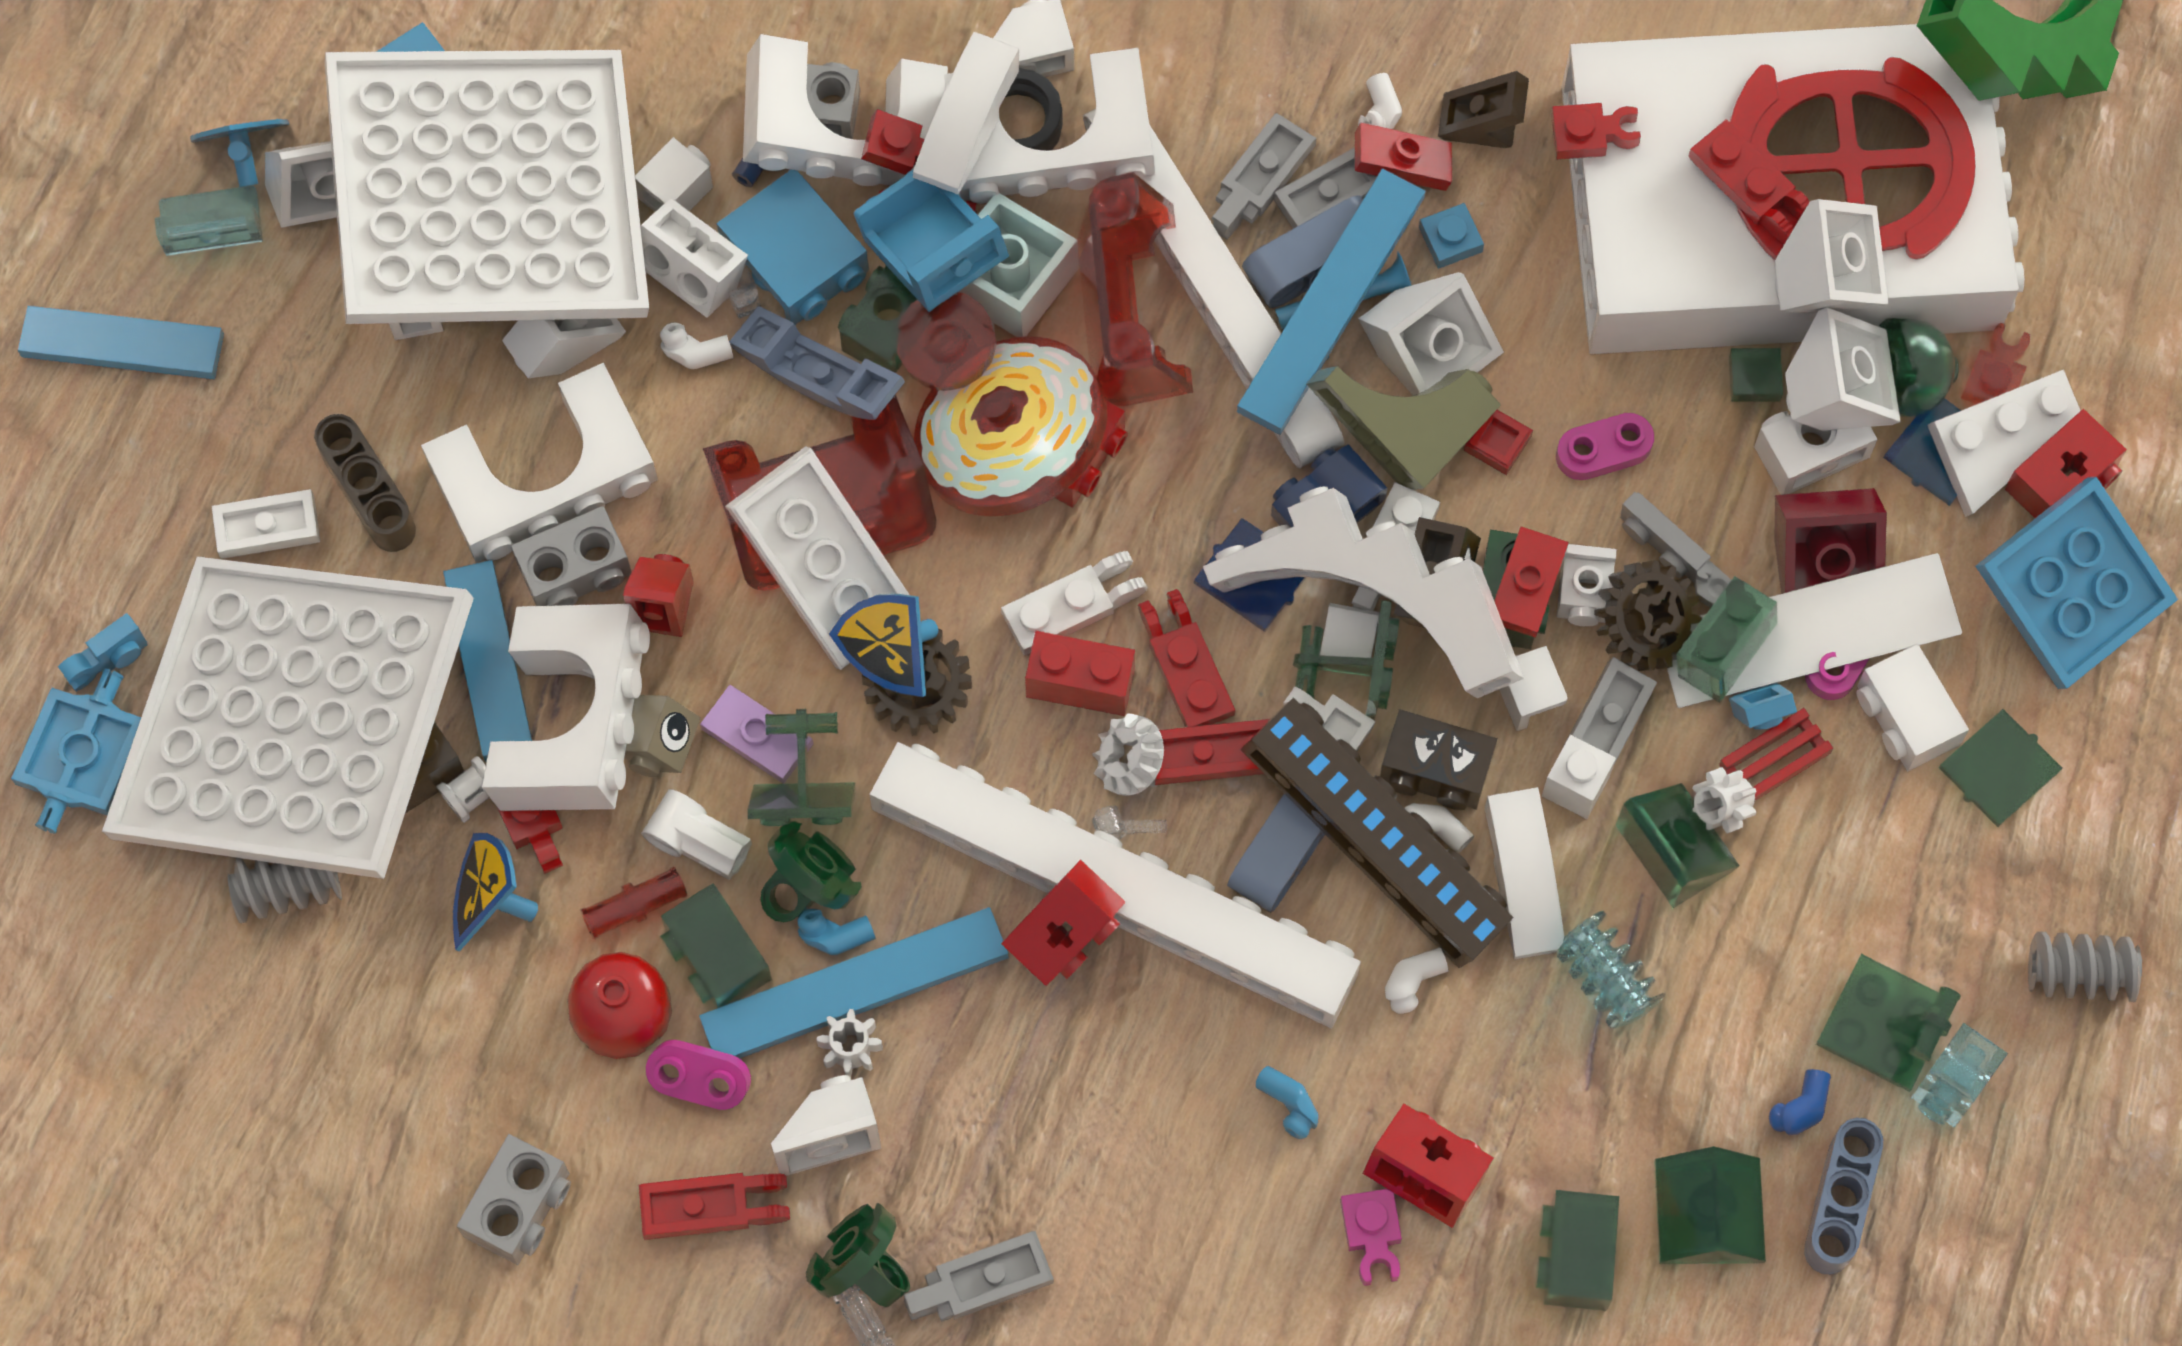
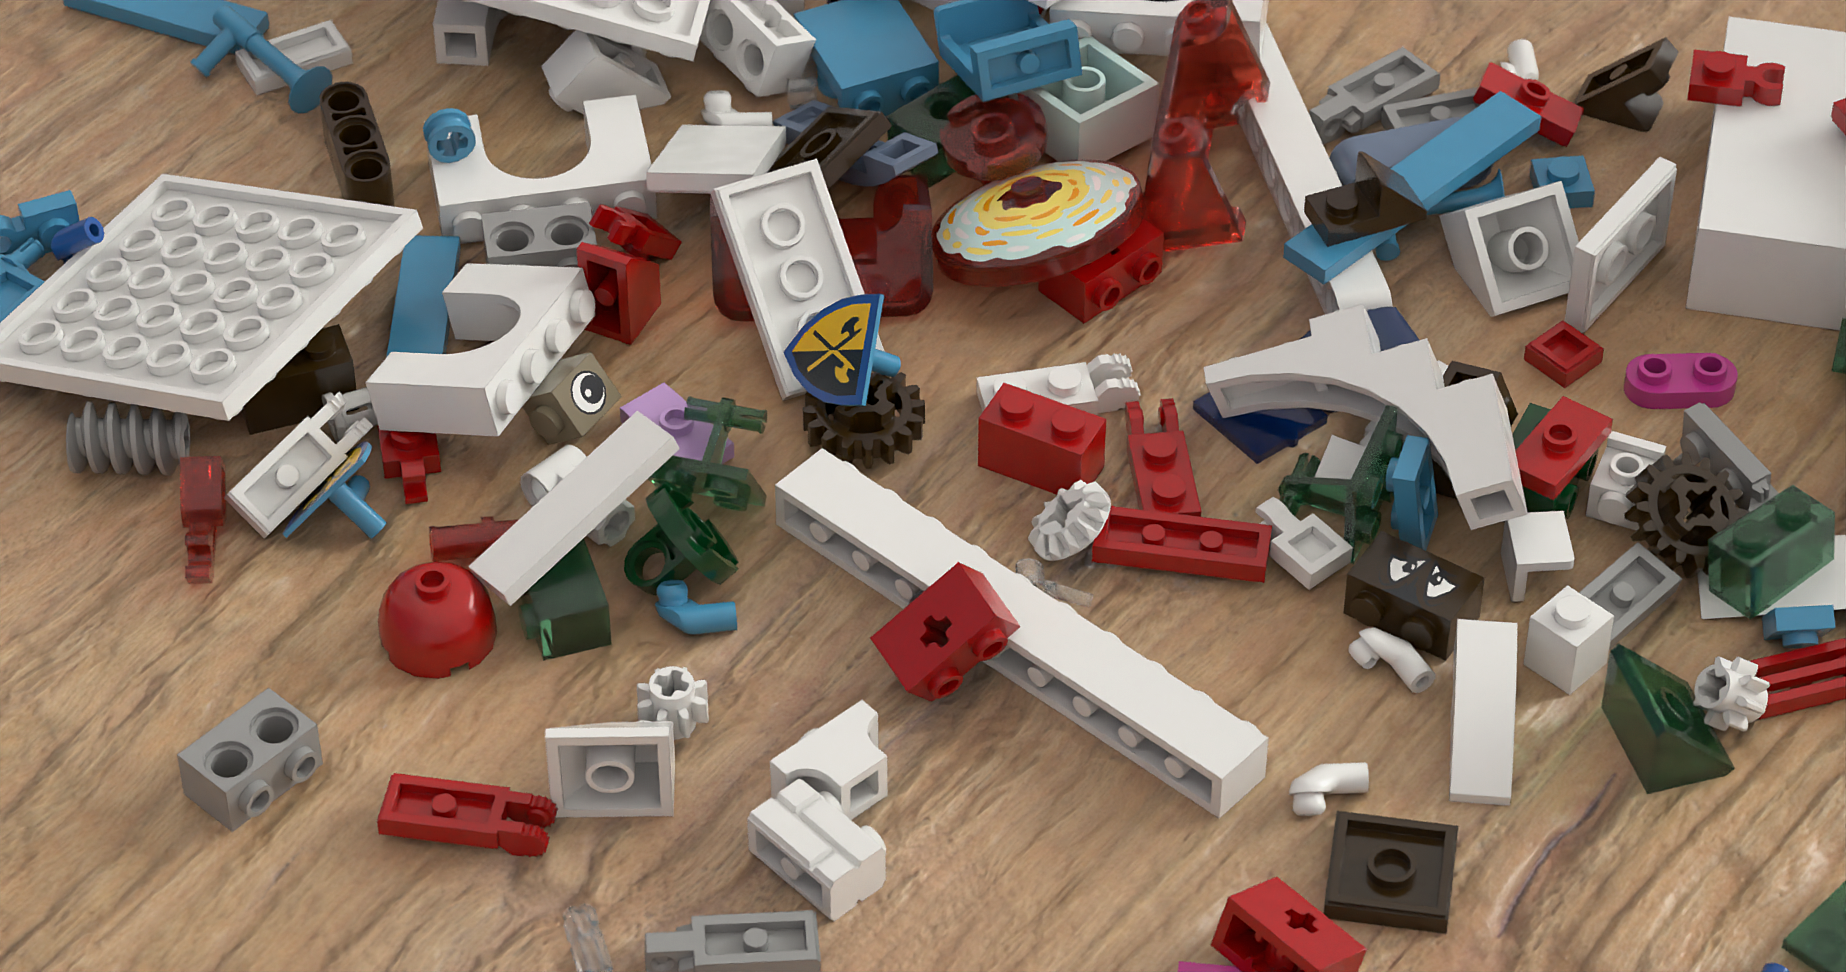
camera: 15 degrees right, 25 degrees down
(149, 666) = (76, 238): none -> blue arm
(262, 371) = (306, 48): none -> white tile
(265, 524) = (245, 162): white plate -> none
(287, 413) = (304, 84): none -> dark azure piece
(375, 941) = (202, 511): none -> clear red piece
(443, 874) = (293, 469): none -> white hinge
(455, 470) = (461, 139): none -> dark azure bush
(652, 518) = (635, 232): none -> red plate
(696, 1071) = (493, 694): dark pink plate -> none
(700, 419) = (714, 156): none -> white tile
(712, 884) = (574, 507): none -> white tile
(796, 387) = (835, 140): none -> dark brown tile
(856, 985) = (721, 659): dark azure tile -> none
(860, 1258) = (607, 884): dark green tile -> none
(1005, 1074) = (839, 760): none -> white brick
(1017, 1163) = (817, 848): none -> white brick
(1276, 856) = (1225, 628): sand blue beam -> none
(1294, 1096) = (1155, 859): dark azure arm -> none
(1300, 349) = (1370, 205): none -> dark brown slope
(1378, 832) = (1324, 627): dark brown brick -> none
(1413, 433) = (1463, 307): olive arch -> none
(1415, 663) = (1414, 491): none -> dark azure plate
(1486, 1051) = (1391, 872): none -> dark brown tile
(1527, 321) = (1620, 245): none -> white tile
(1607, 972) = (1554, 819): clear light blue piece -> none

